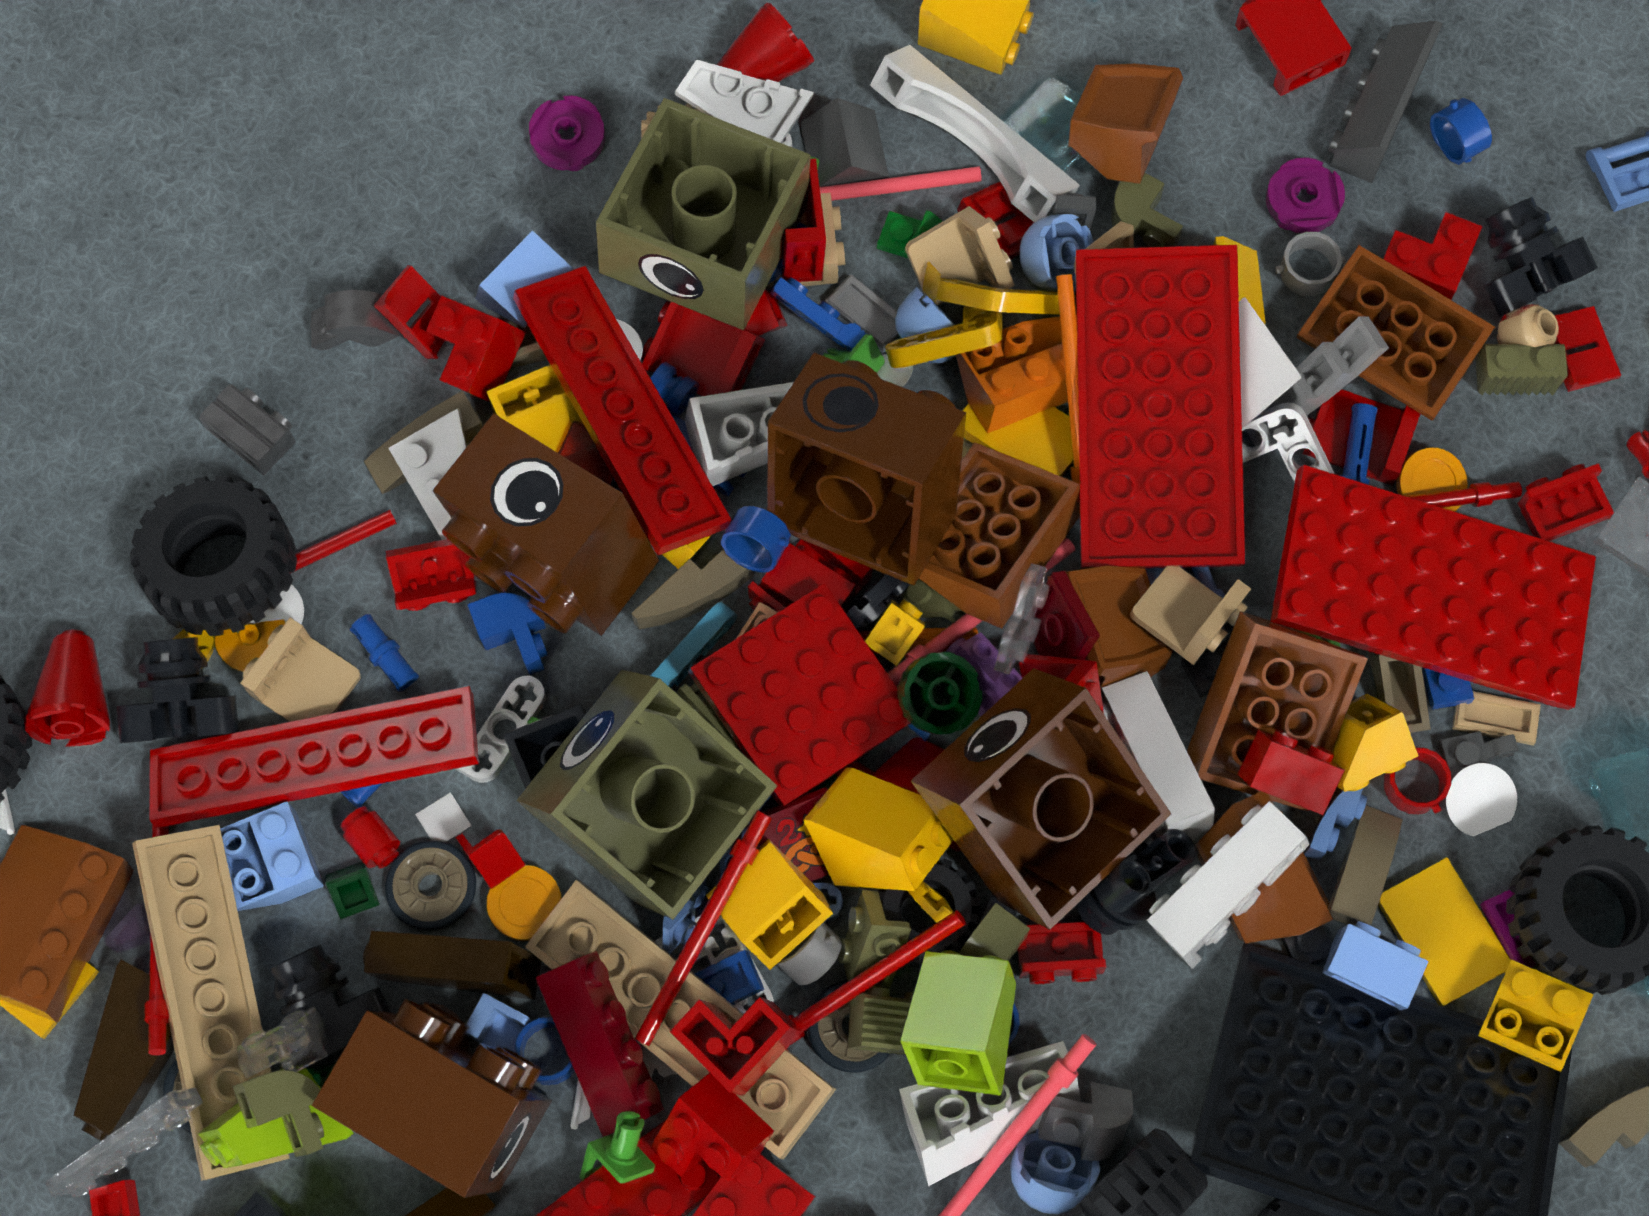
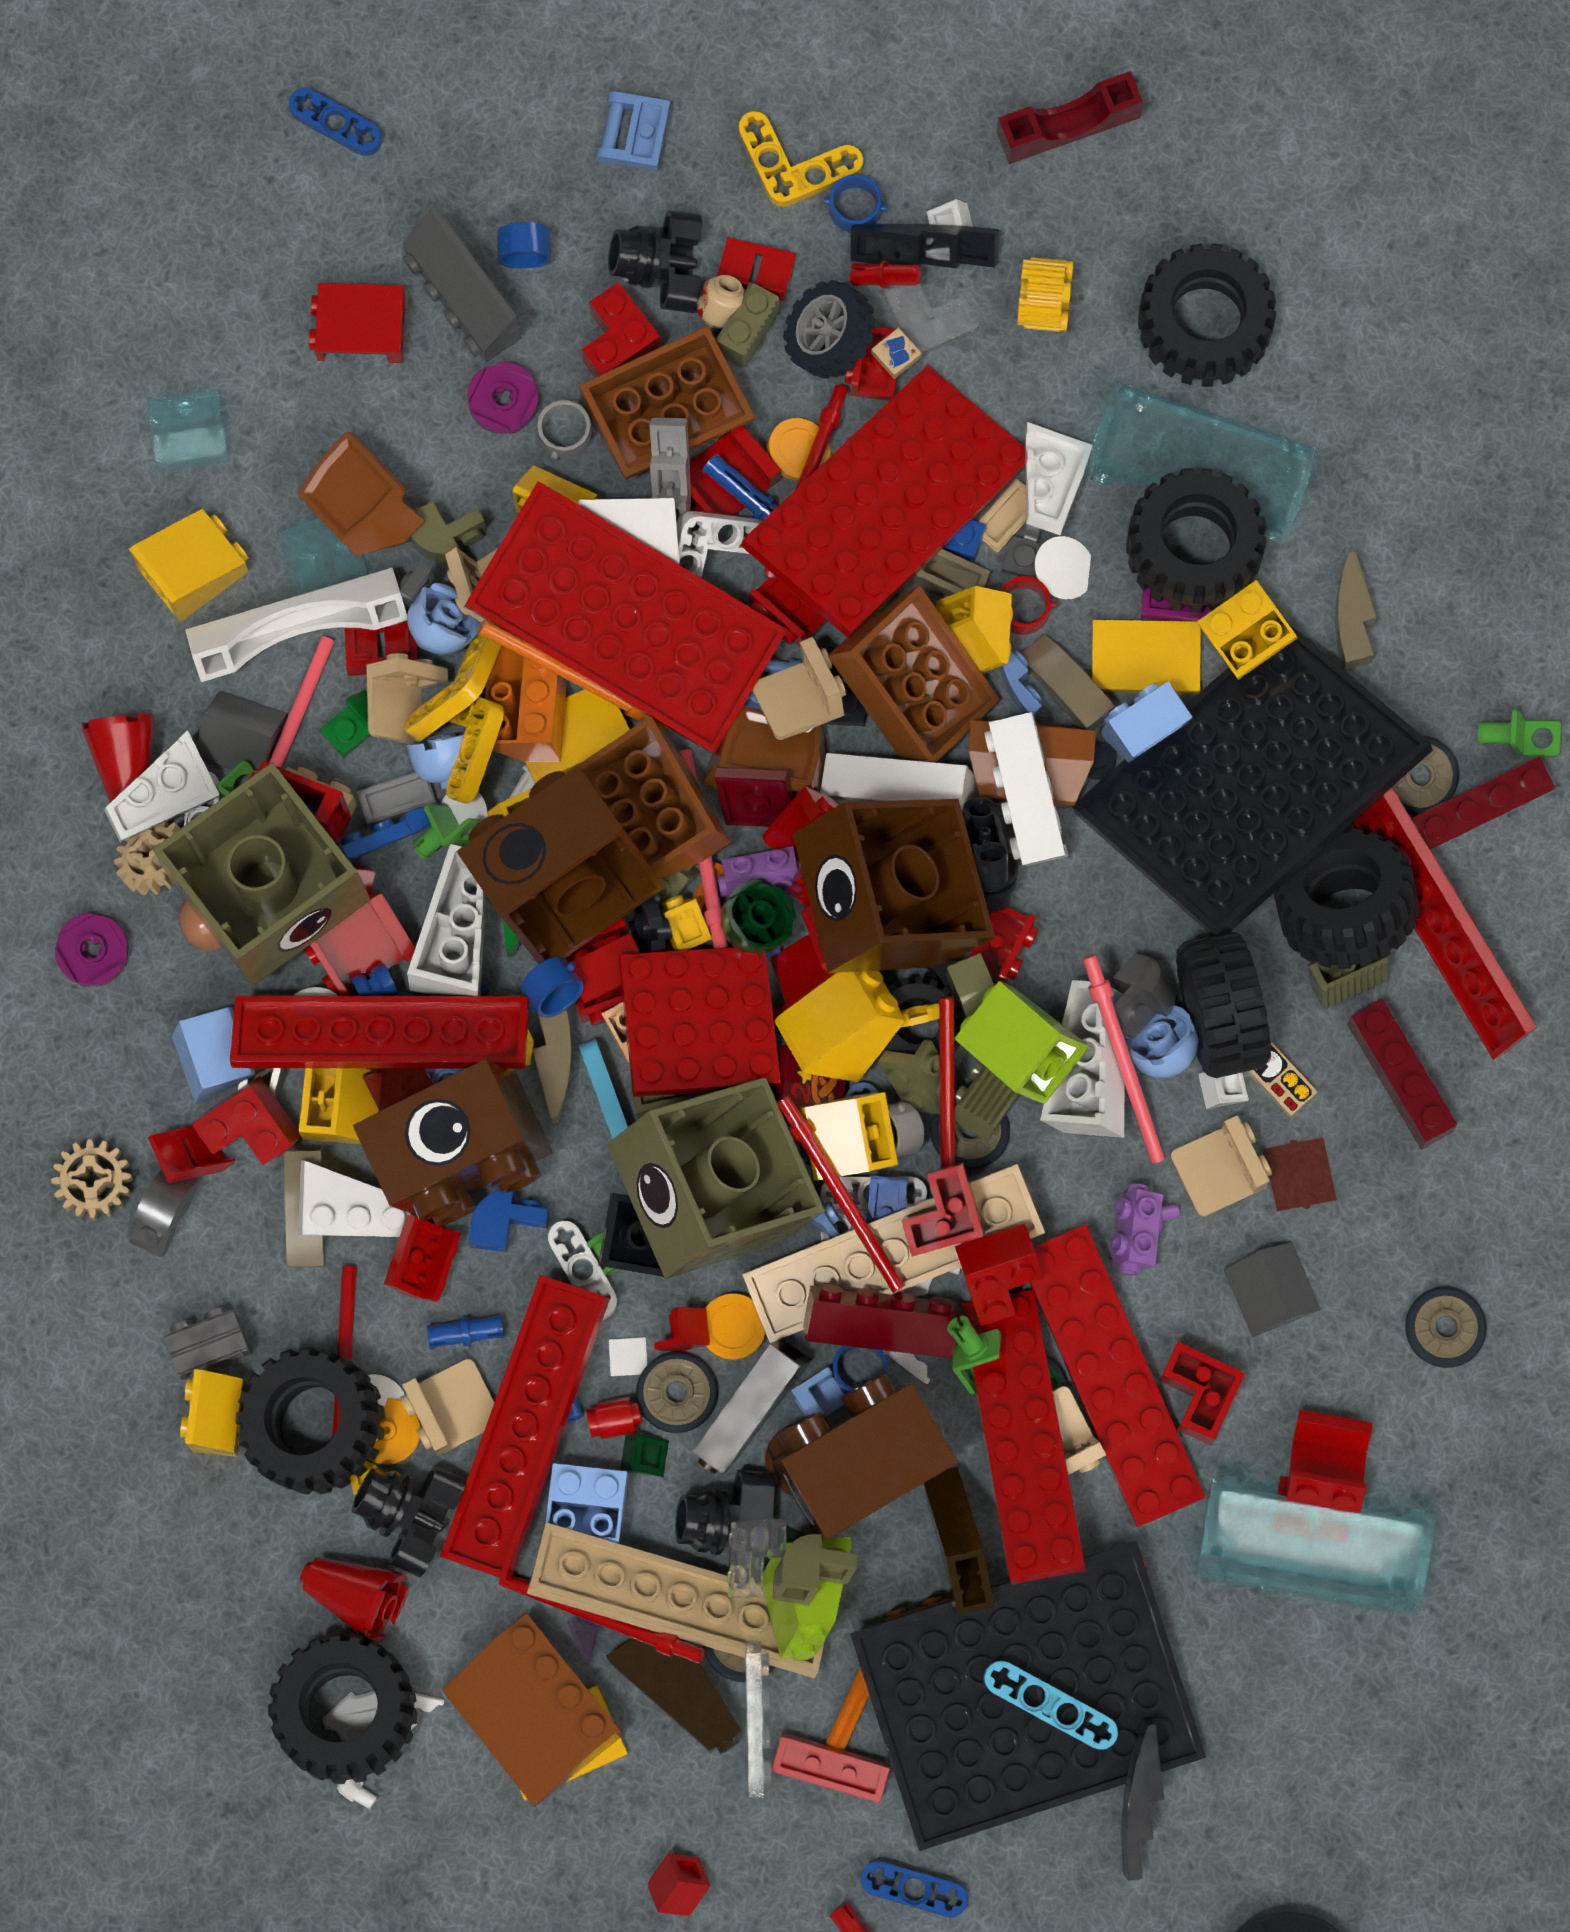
camera: 60 degrees left, 5 degrees up
(175, 459) = (212, 1413): none -> yellow slope
(363, 234) = (108, 1179): none -> tan gear
(931, 282) = (410, 731): yellow sticker -> none
(1023, 625) = (737, 822): clear plate -> none
(1263, 556) = (787, 609): none -> red bracket
(1291, 771) = (968, 693): red brick -> none
(1564, 735) = (1052, 476): none -> white wing
(1568, 441) = (843, 336): none -> black wheel
(1587, 517) = (896, 353): none -> tan tile

